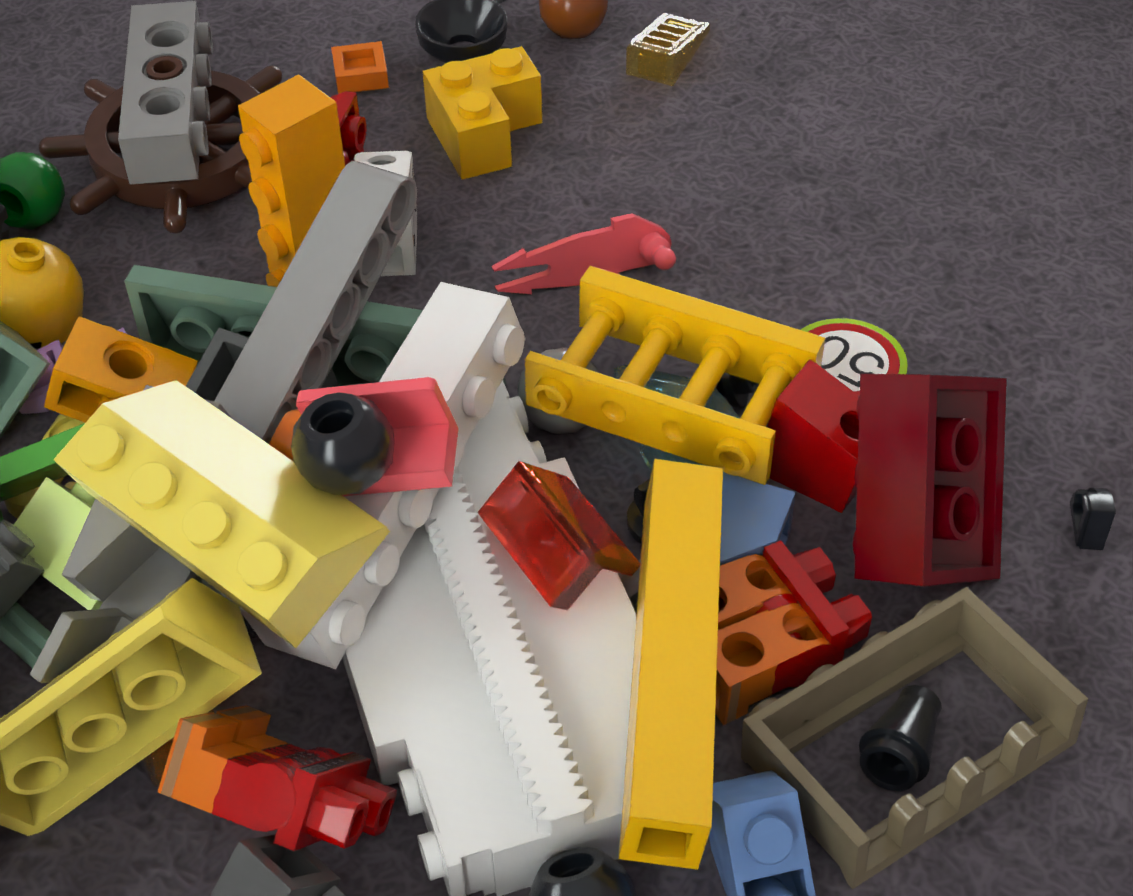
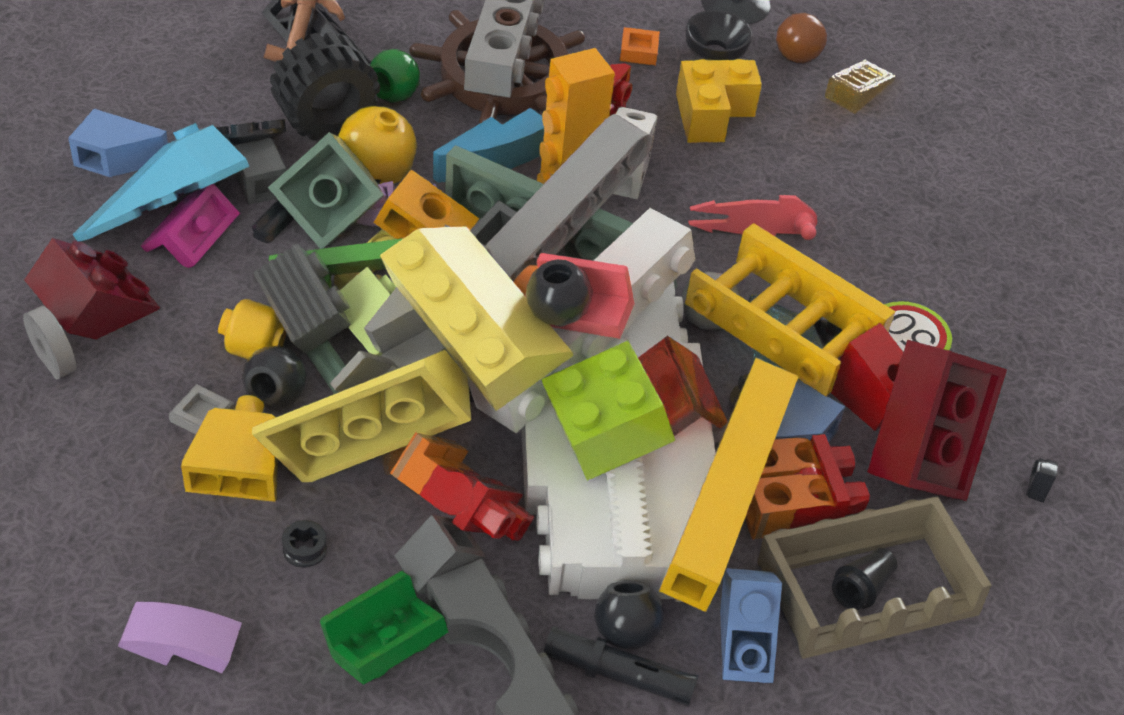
camera: 10 degrees right, 0 degrees up
(206, 246) = (504, 144): none -> dark azure slope
(464, 599) = (608, 410): none -> lime brick

